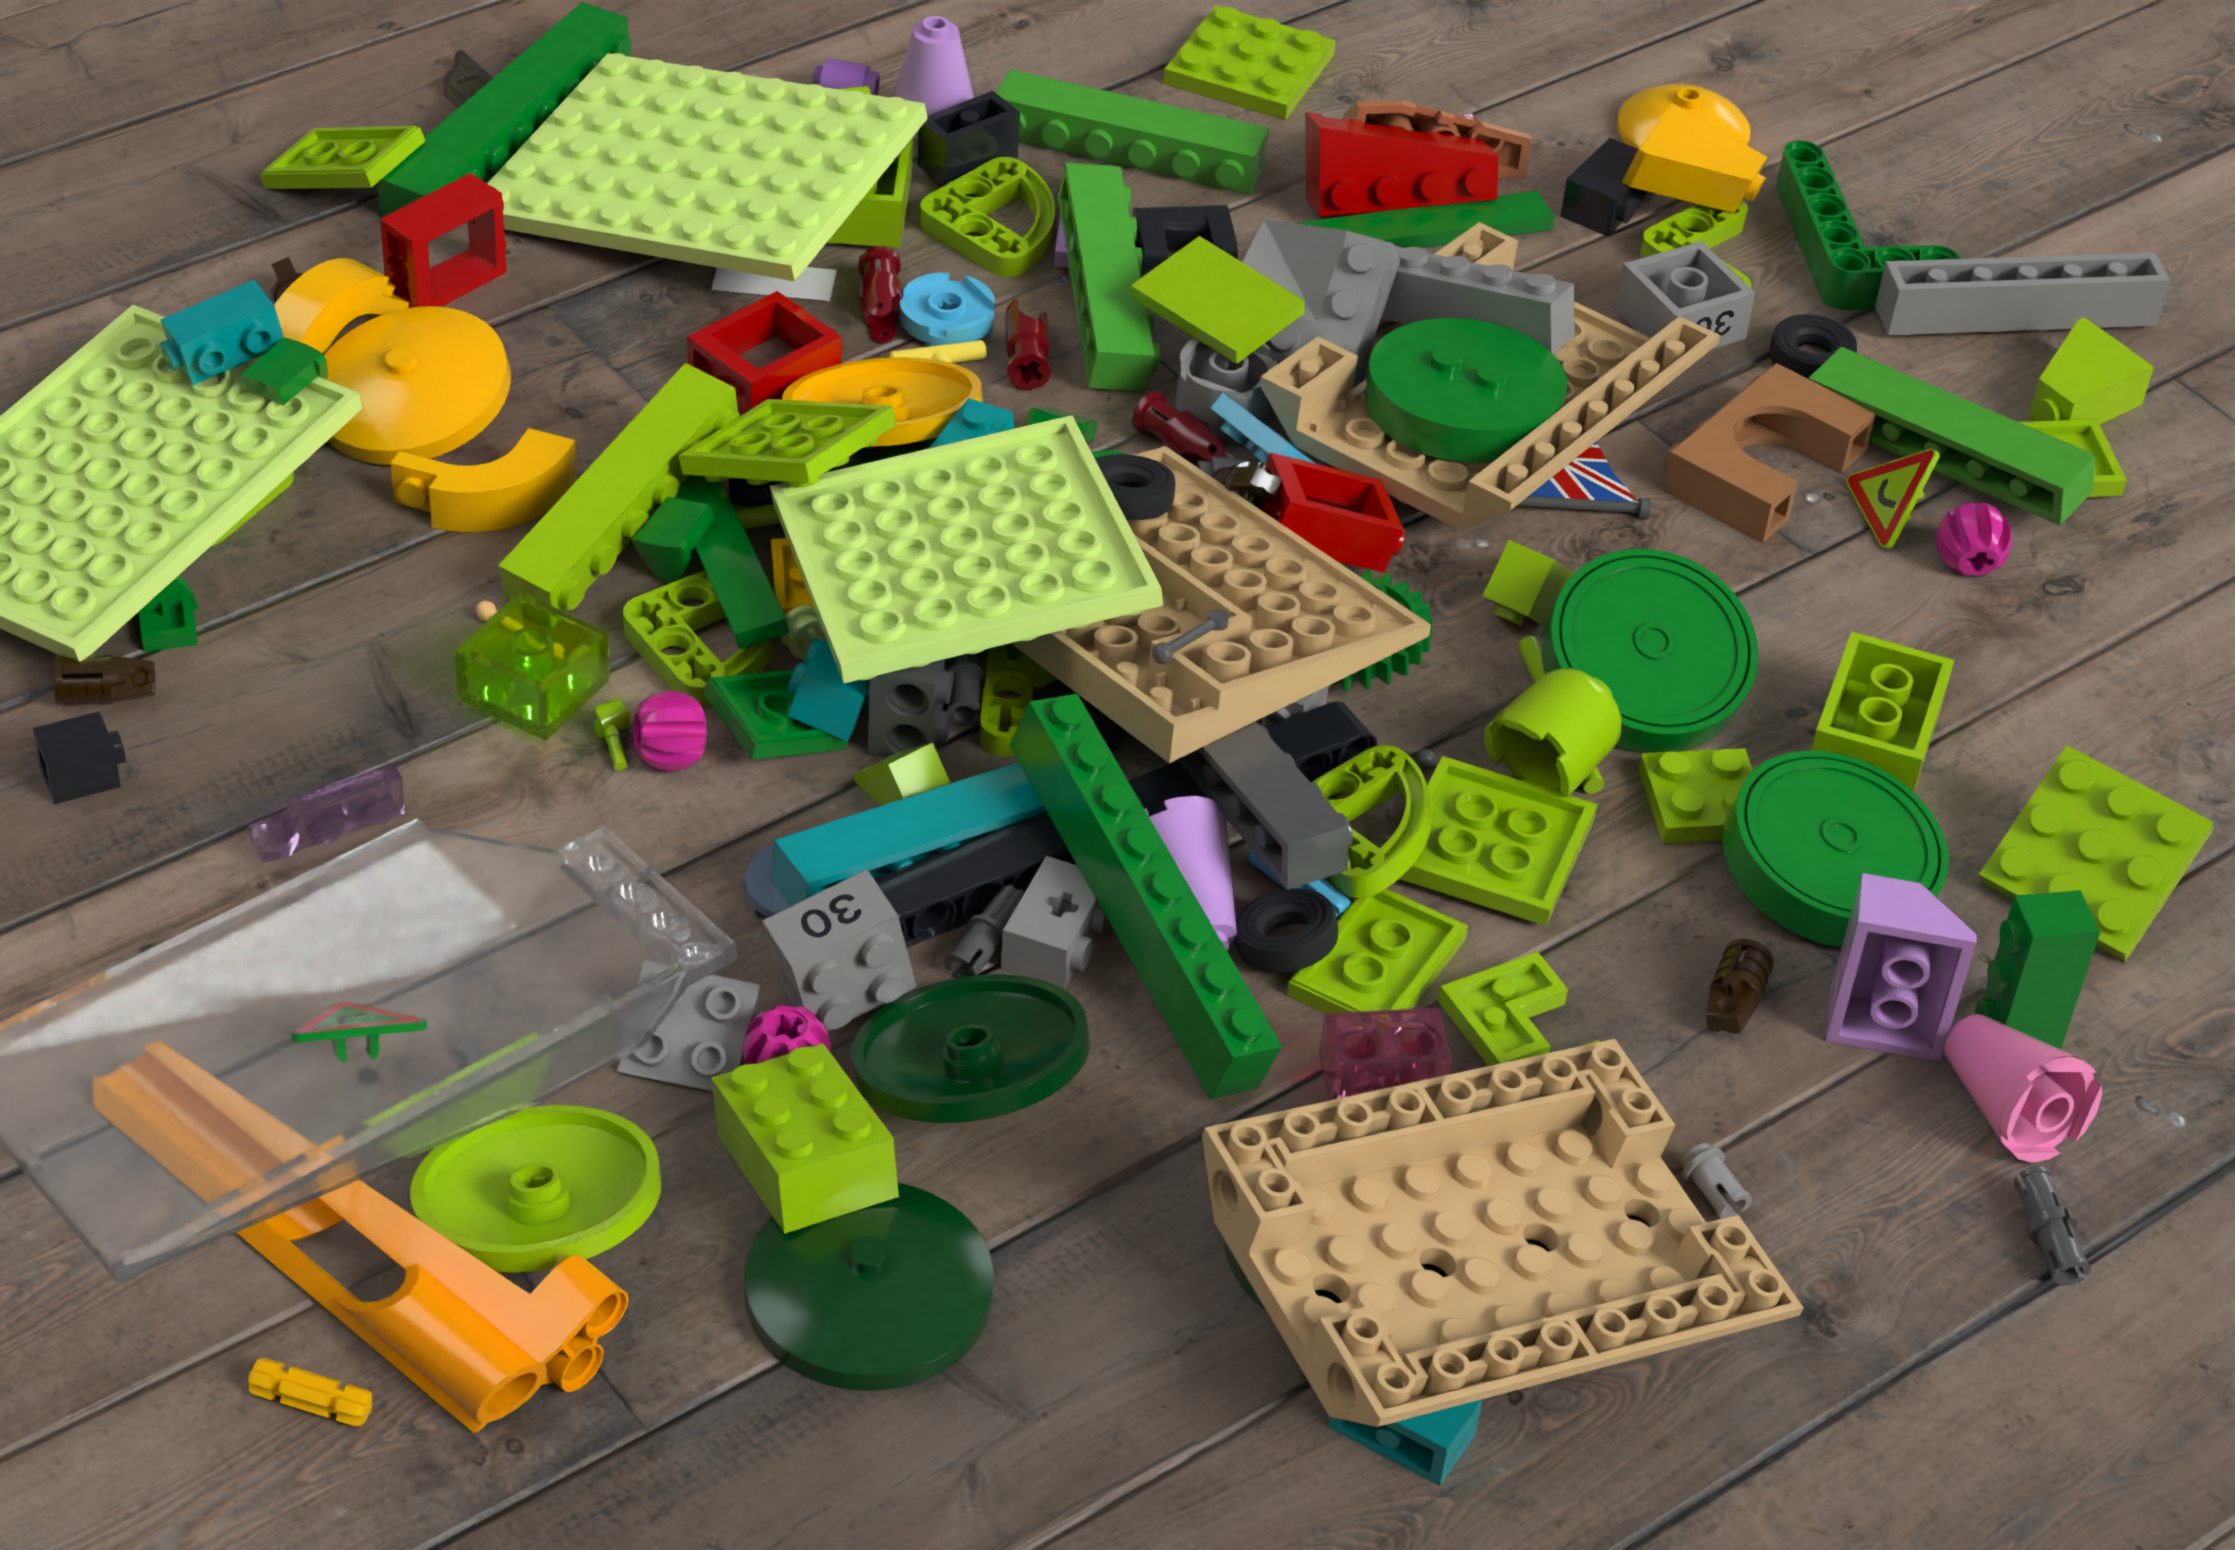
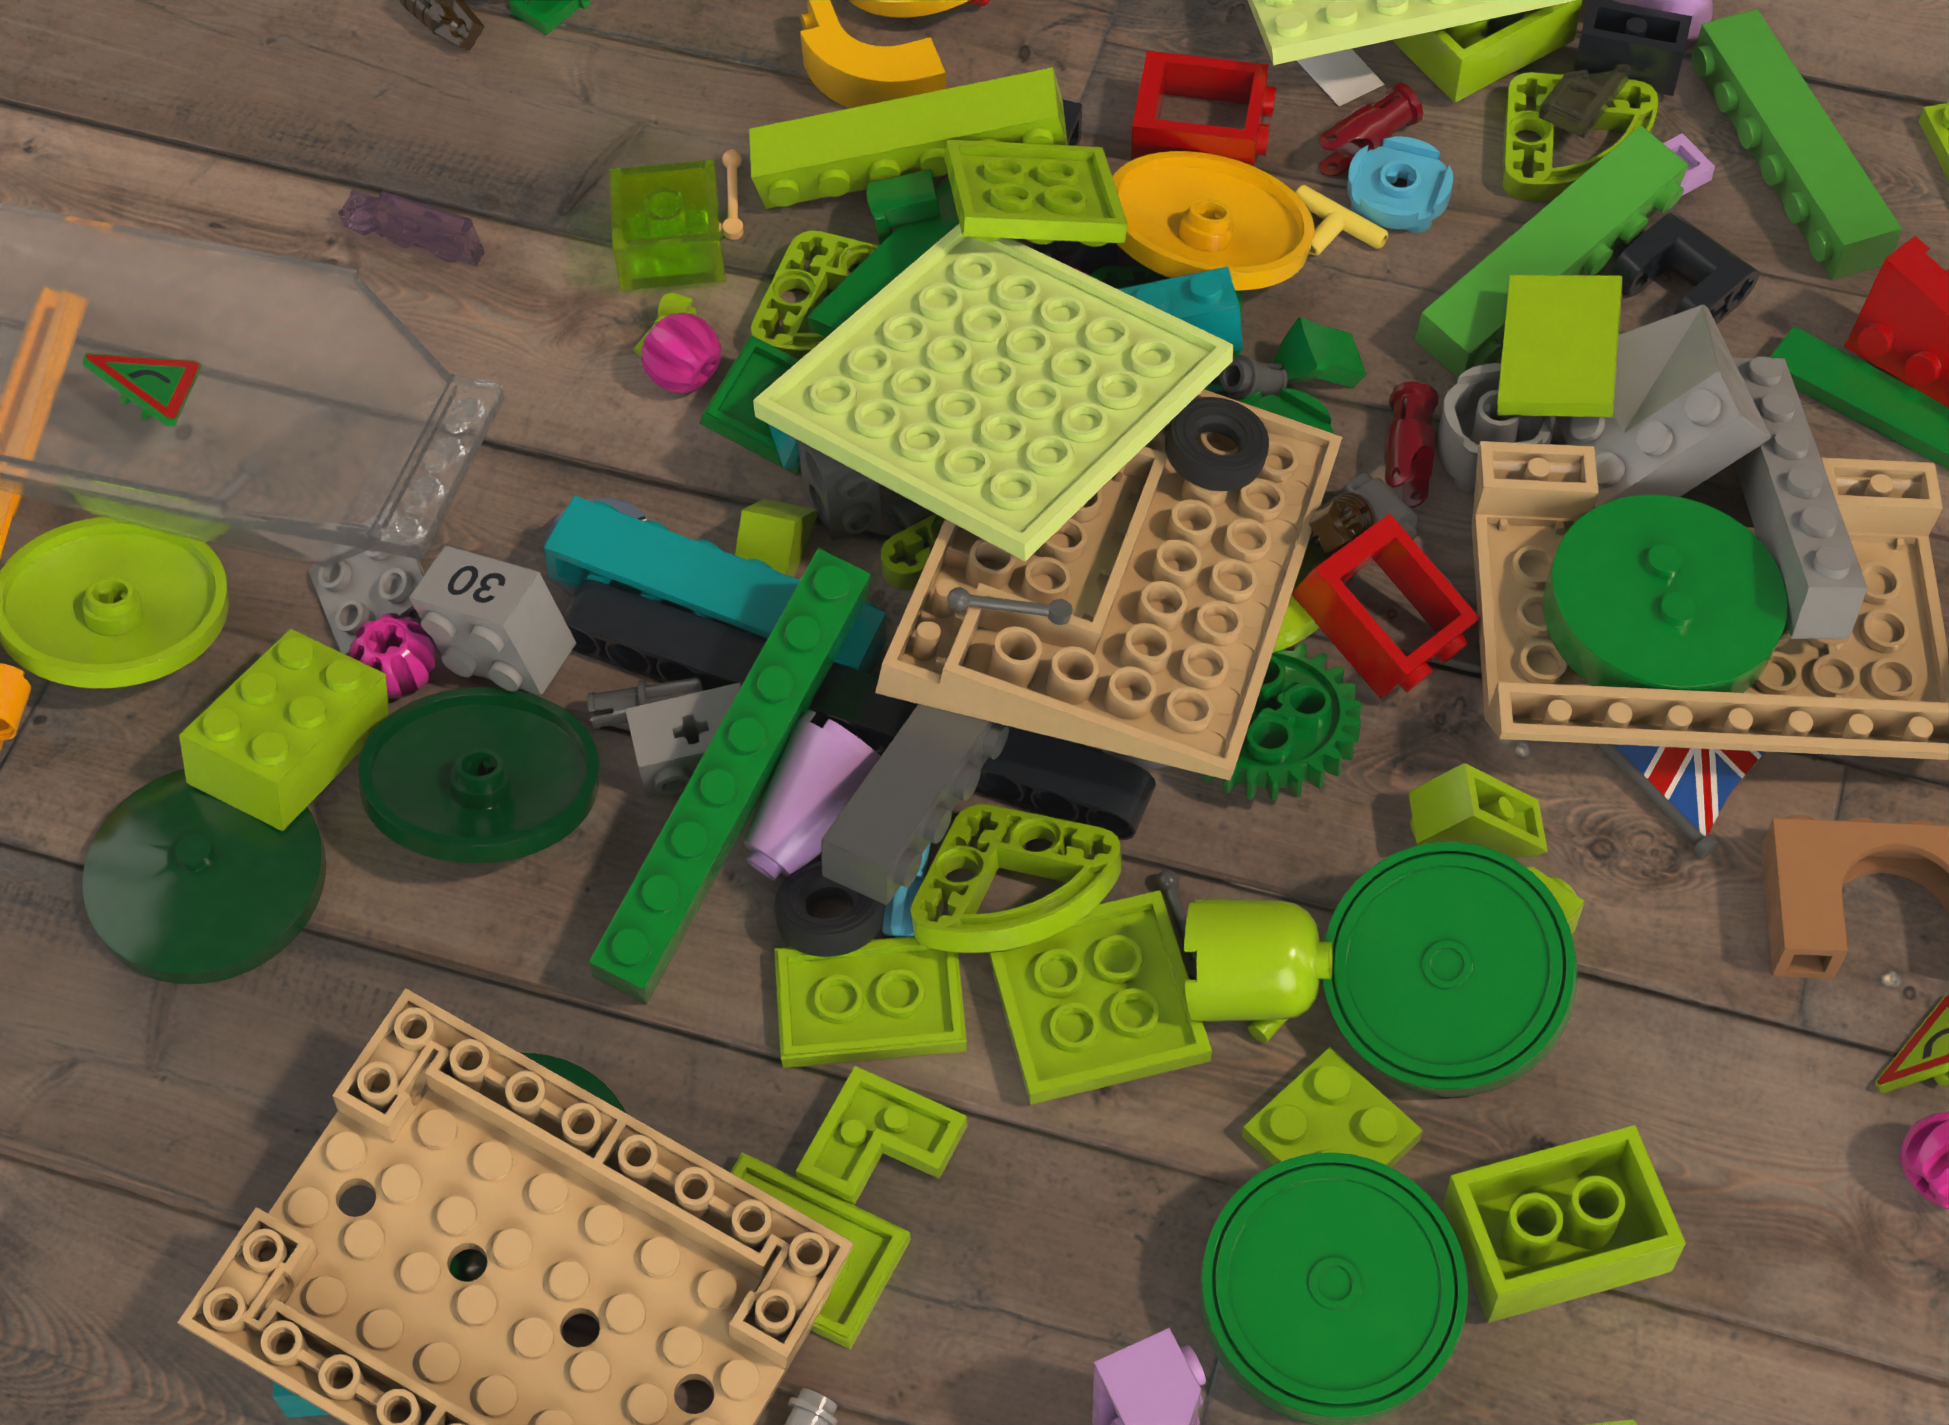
camera: 60 degrees right, 15 degrees up
(79, 757) = (346, 55): black brick -> none
(984, 187) = (1583, 98): none -> clear smoke tile
(1027, 348) = (1410, 265): dark red piece -> none
(1252, 432) = (1439, 505): medium azure plate -> none
(1382, 1049) = (744, 1069): clear pink brick -> none
(1738, 985) = (1070, 1310): dark brown hinge -> none

